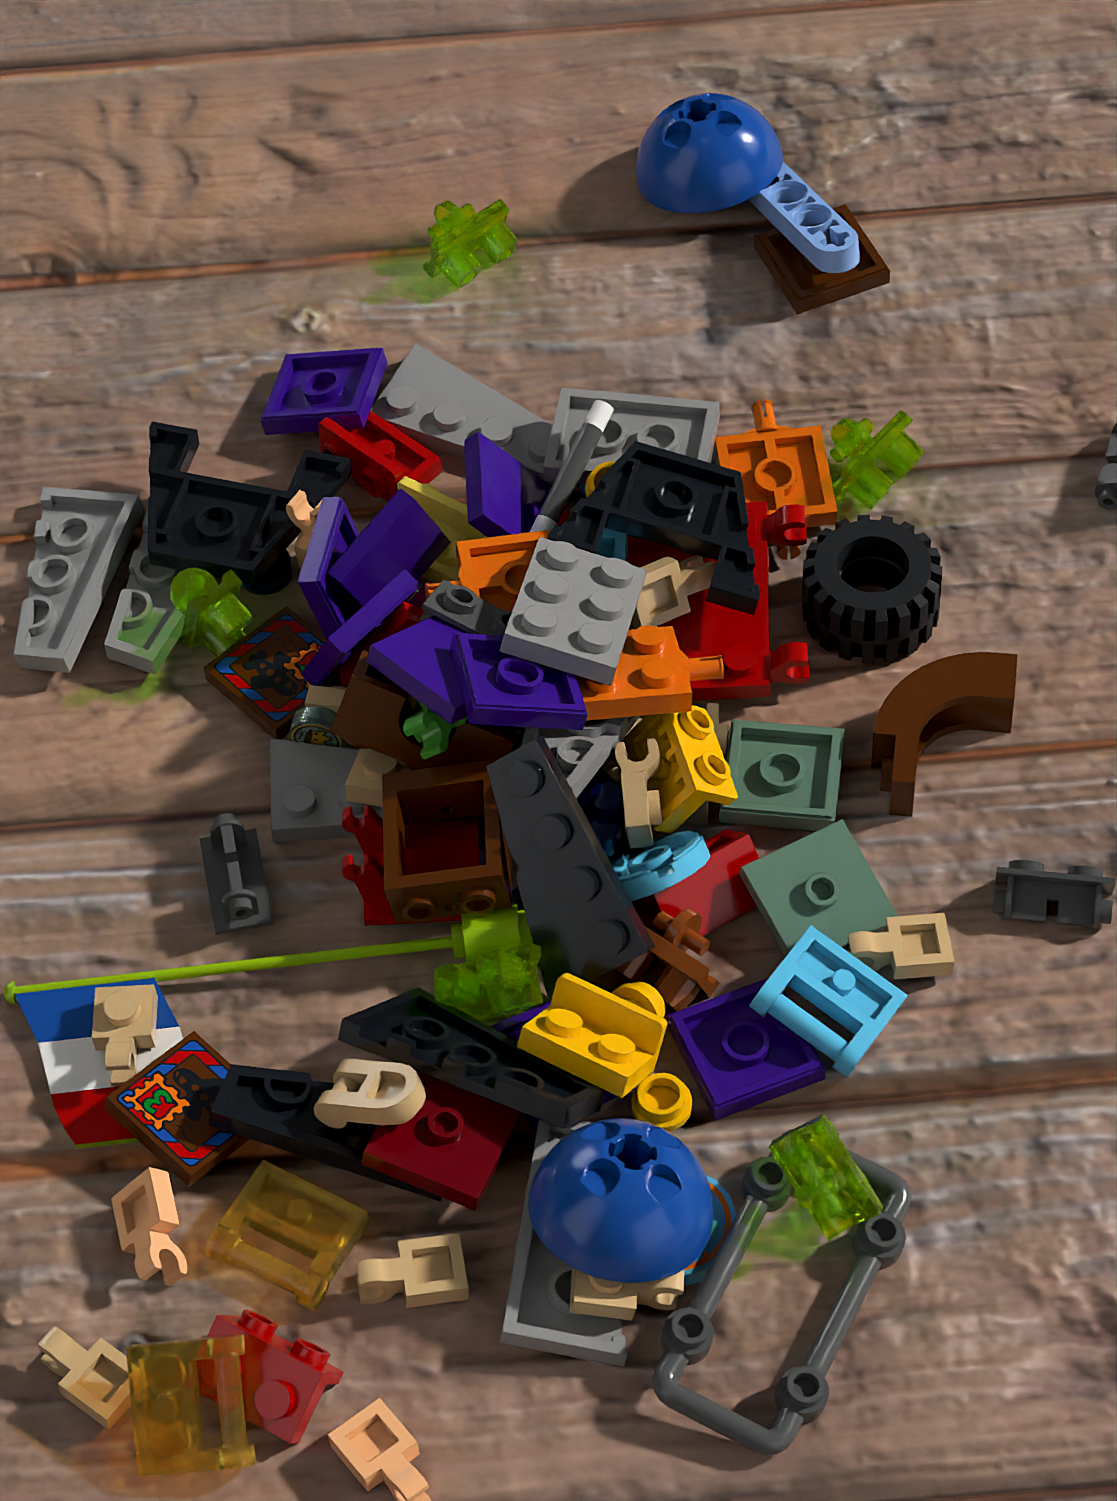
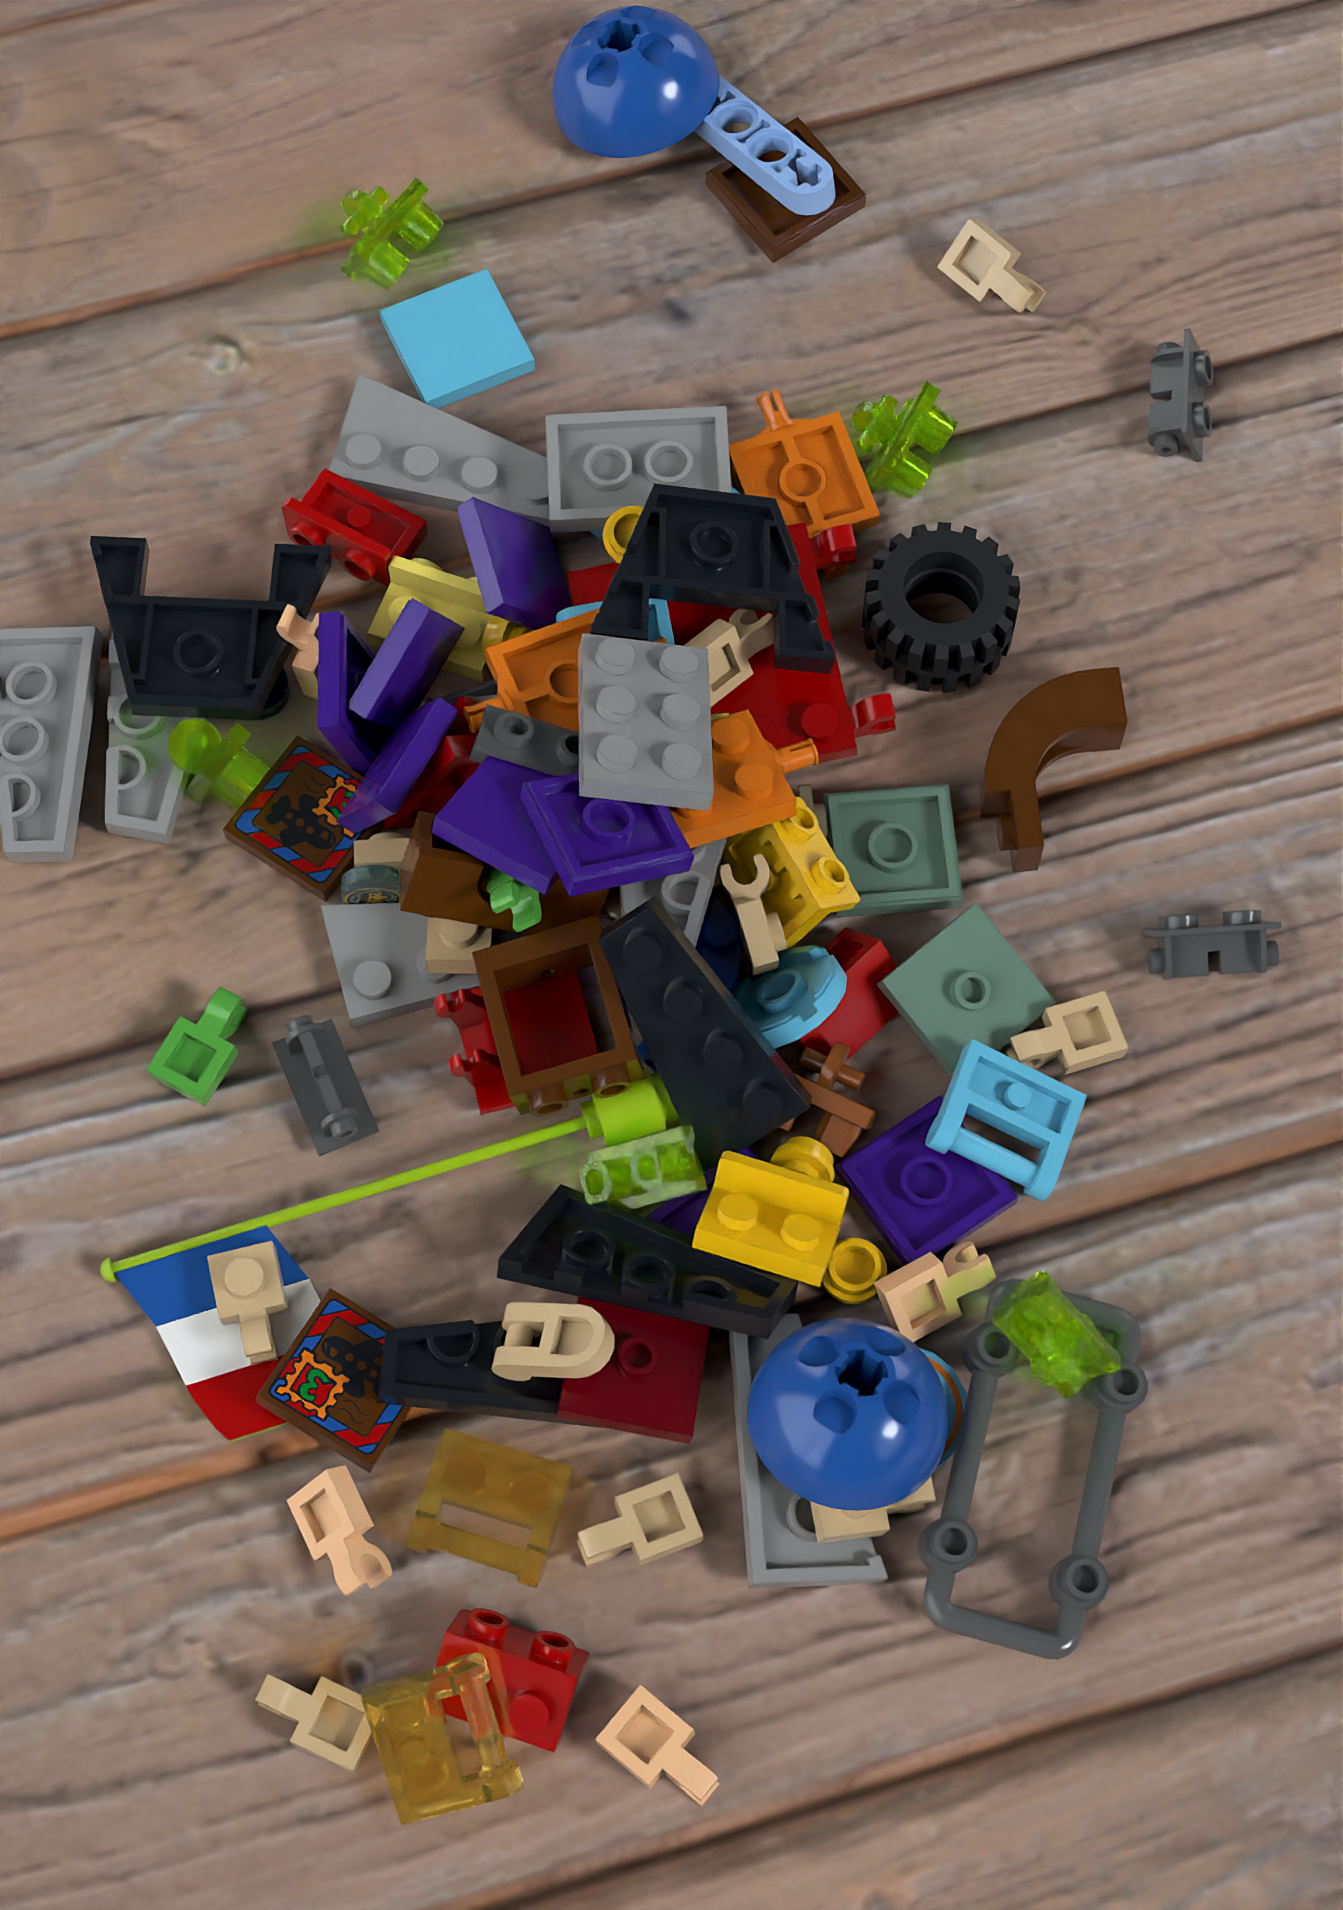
camera: 15 degrees left, 15 degrees up
(136, 835) = (197, 1054): none -> bright green plate
(324, 386) = (272, 454): dark purple tile -> none
(507, 332) = (457, 340): none -> medium azure tile
(573, 466) = (584, 524): dark grey bar -> none
(719, 1129) = (926, 1290): none -> light nougat plate
(979, 337) = (983, 266): none -> tan plate

